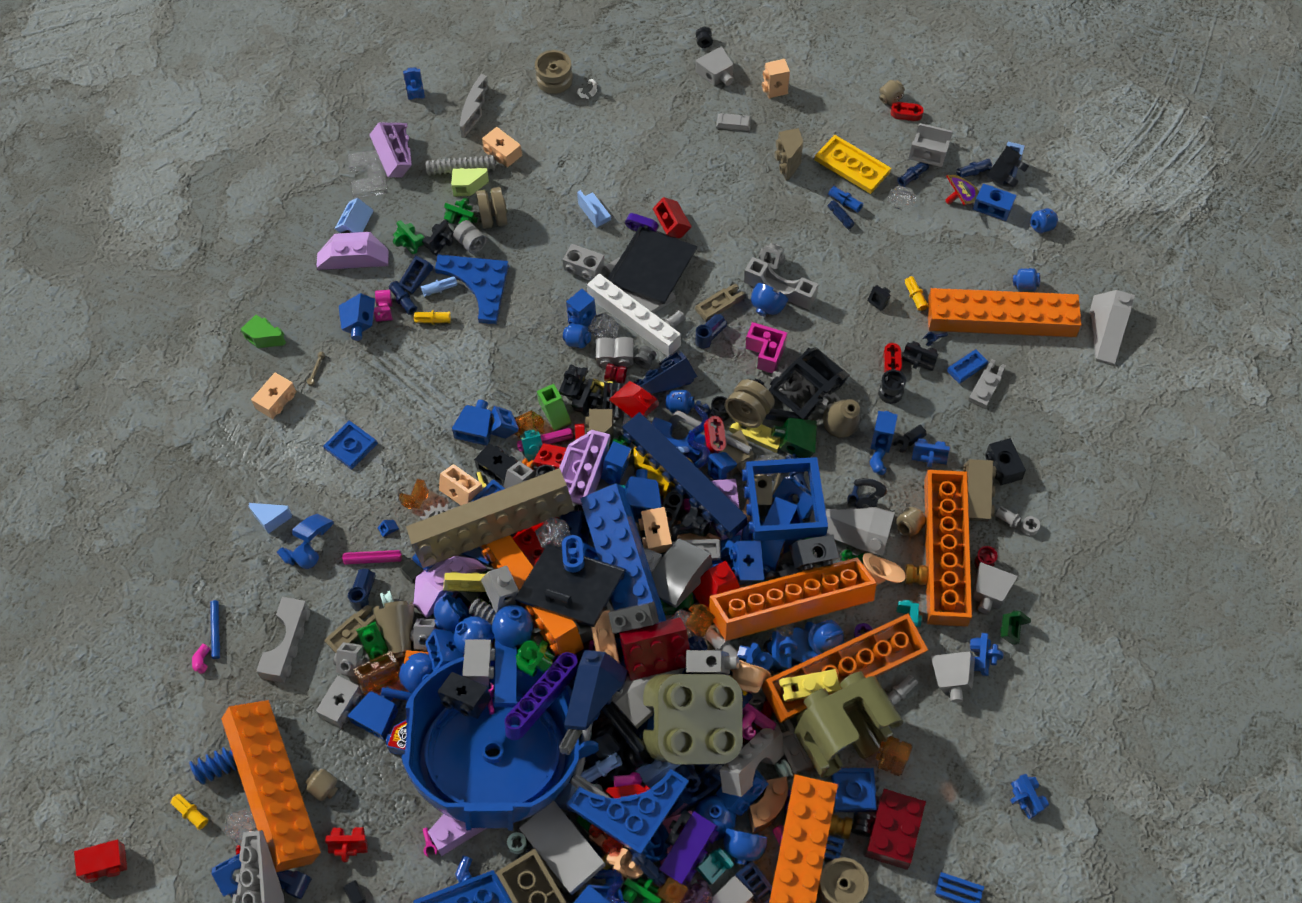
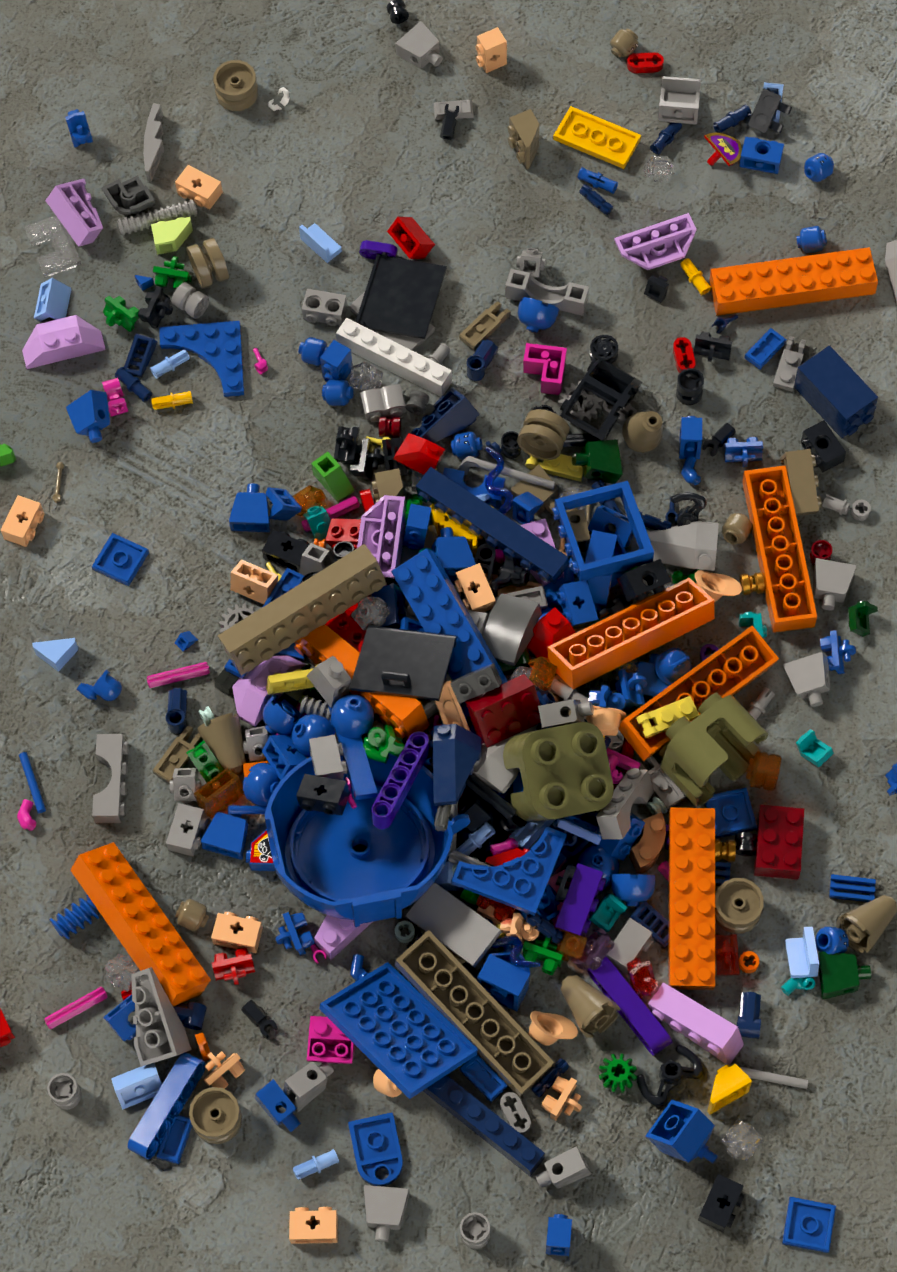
camera: 10 degrees left, 5 degrees up
(189, 811) = (61, 968): yellow axle -> none
(191, 852) = (76, 1007): none -> dark pink axle
(311, 527) = (106, 656): blue slope -> none
(368, 818) = (224, 930): none -> light nougat brick
(410, 824) = (293, 923): none -> blue hips
(417, 496) = (208, 606): clear orange bracket -> none
(436, 216) = (144, 282): none -> blue piece
(440, 144) = (129, 196): none -> dark grey brick
(517, 301) = (261, 366): none -> dark pink hand
(561, 295) = (312, 350): none -> blue head
(573, 553) = (400, 631): blue plate -> none
(703, 777) = (580, 828): none -> blue tile
(715, 434) = (514, 475): red beam -> none
(727, 131) = (449, 123): none -> black bar
(822, 340) = (604, 348): none -> black wheel
(835, 501) = (654, 522): none -> dark blue axle
(888, 258) = (658, 243): none -> lavender wedge
(945, 743) = (813, 749): none -> teal bracket
(1025, 415) = (836, 392): none -> dark blue brick

